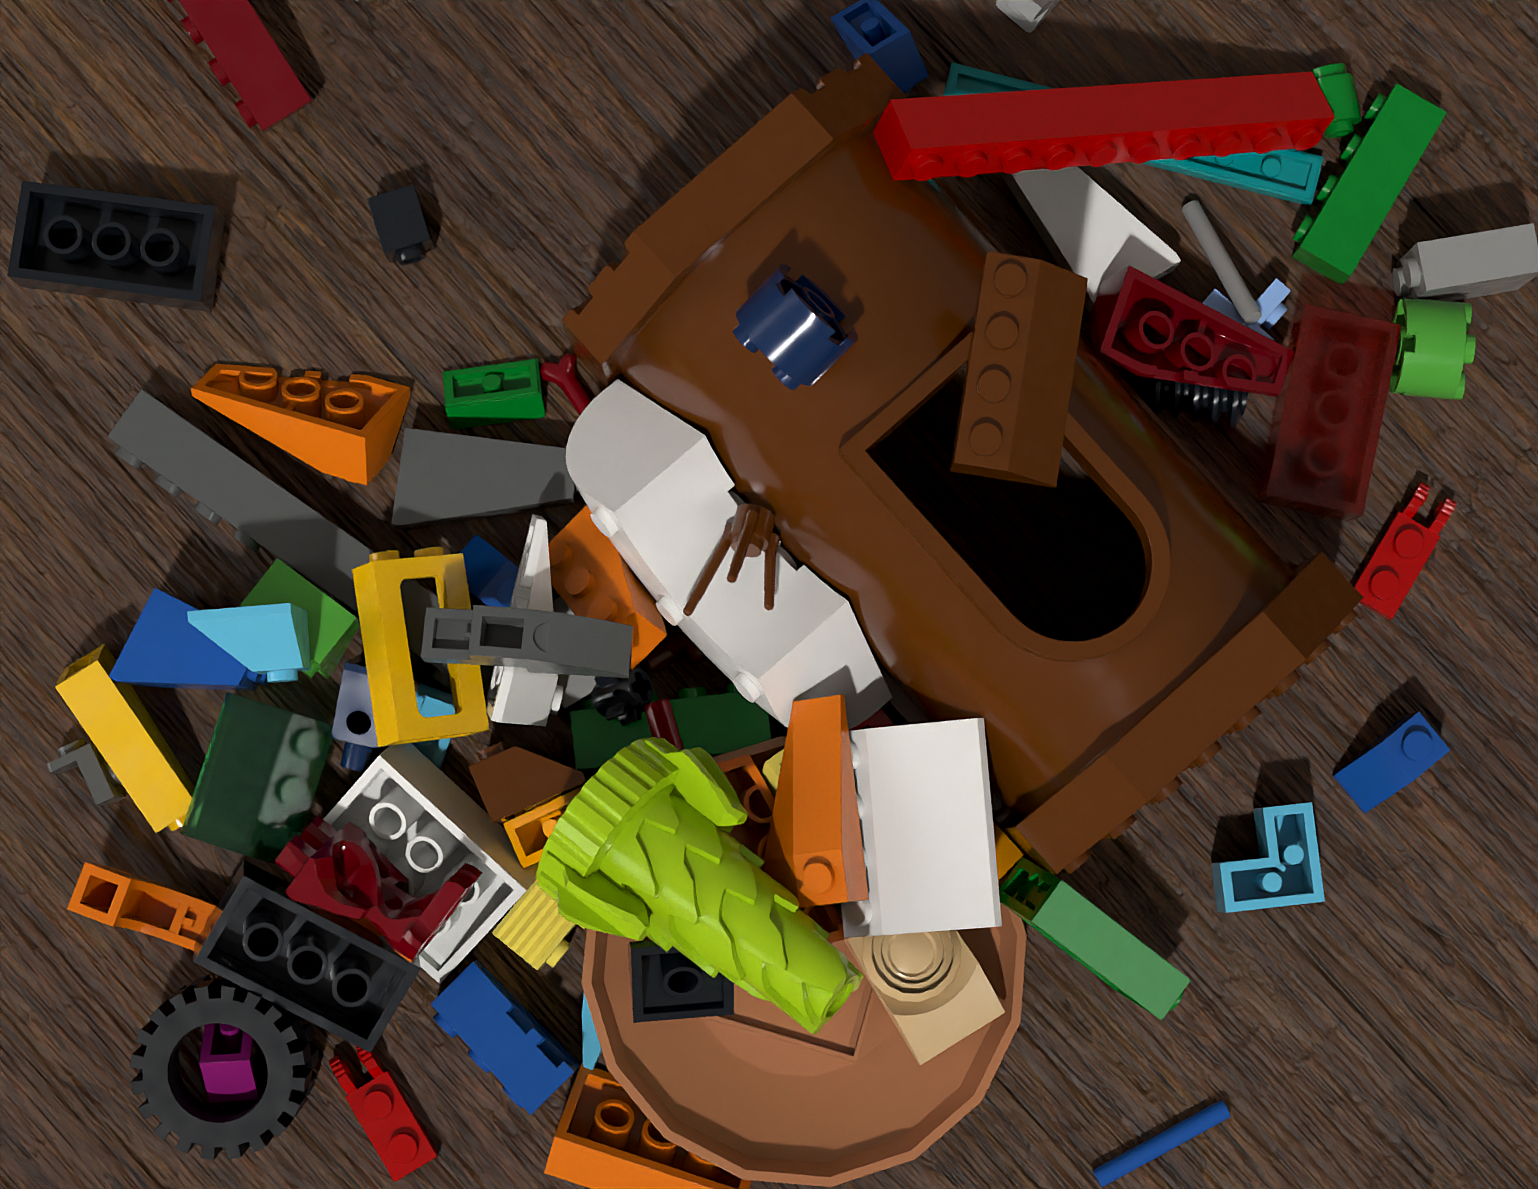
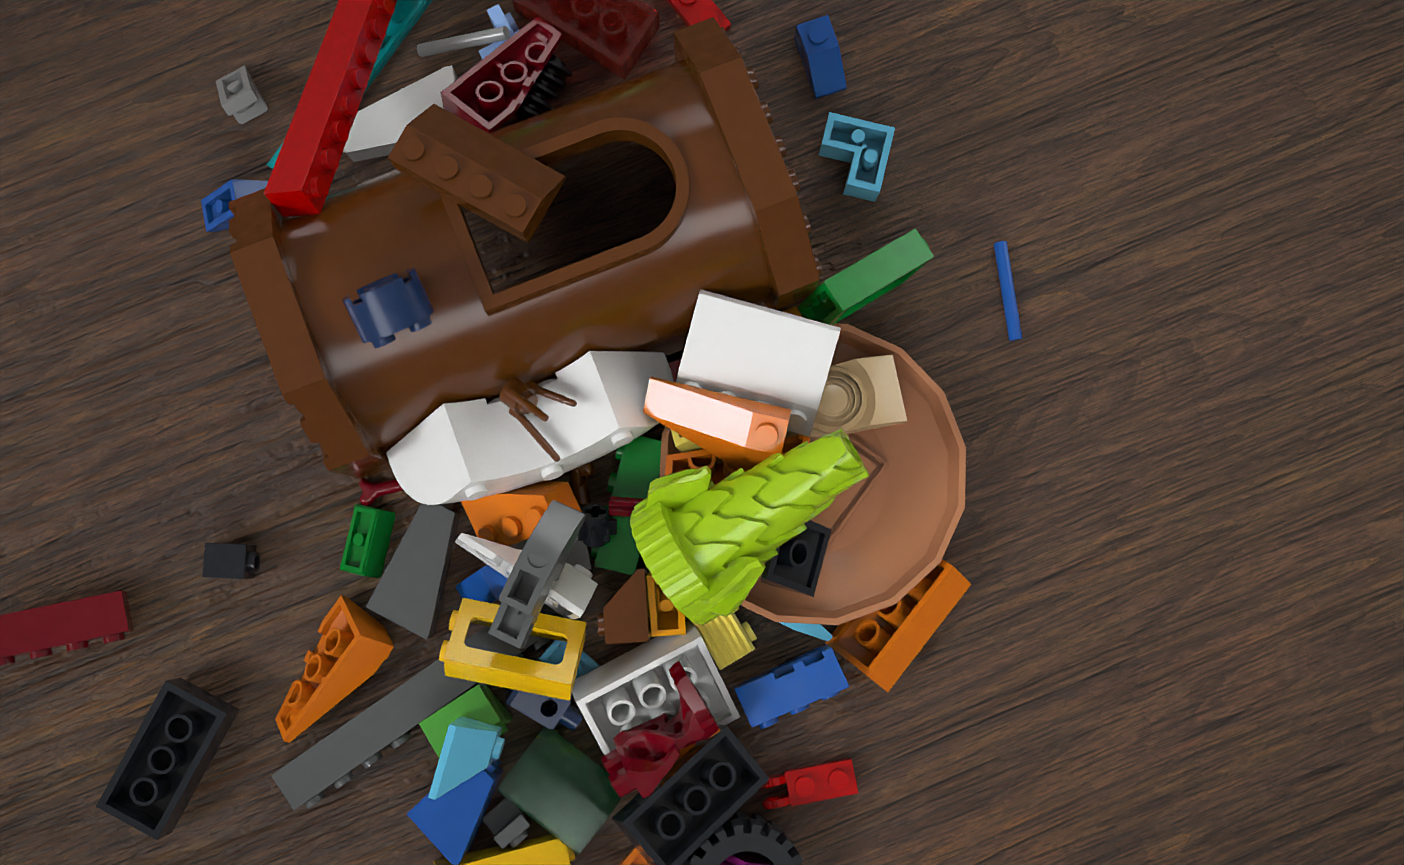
camera: 70 degrees left, 0 degrees up
(187, 723) = (507, 824): none -> dark grey bracket

